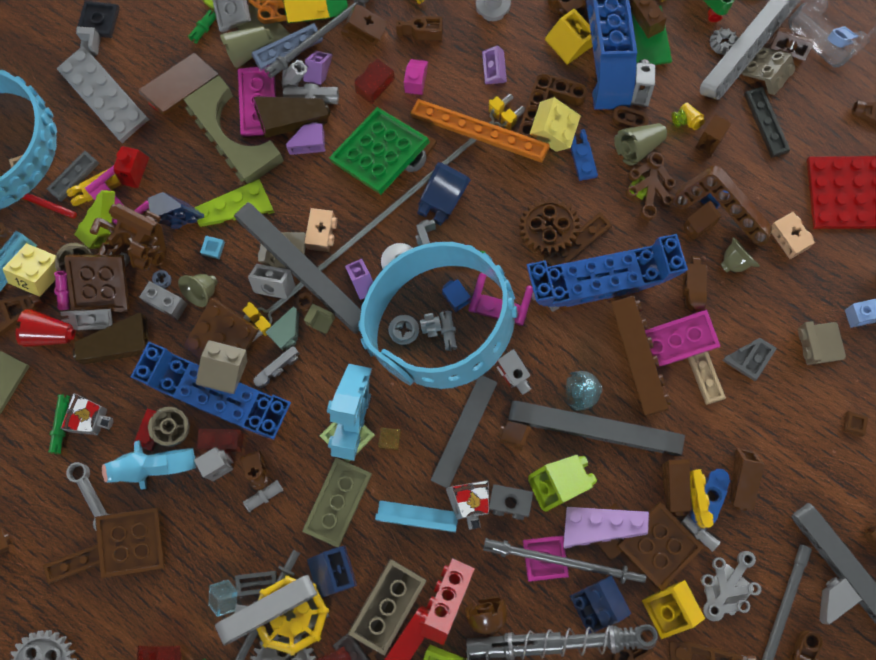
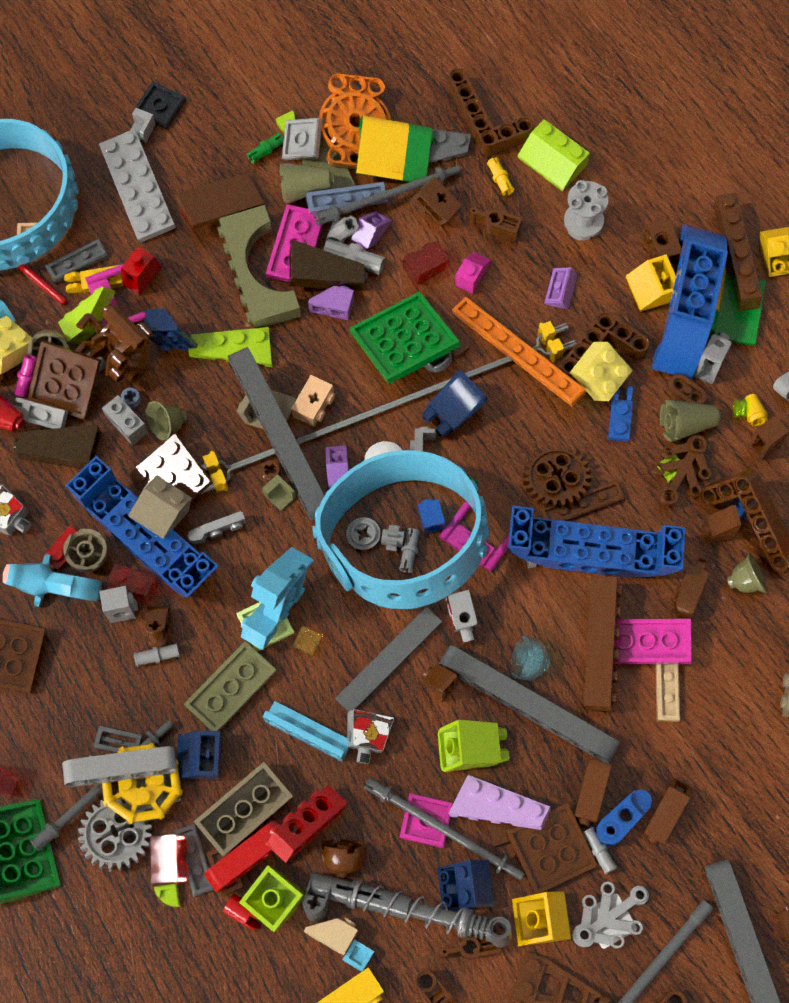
camera: 15 degrees right, 5 degrees down
(212, 247) = (194, 382): medium azure plate -> none
(222, 598) = (78, 742): clear light blue panel -> none
(271, 281) = (243, 437): light grey brick -> none
(285, 330) = (240, 492): sand green slope -> none
(522, 498) = (403, 737): dark grey brick -> none
(700, 500) = (608, 811): yellow hinge -> none
(751, 358) = (723, 688): dark grey wing -> none
(837, 599) = (720, 969): light grey slope -> none

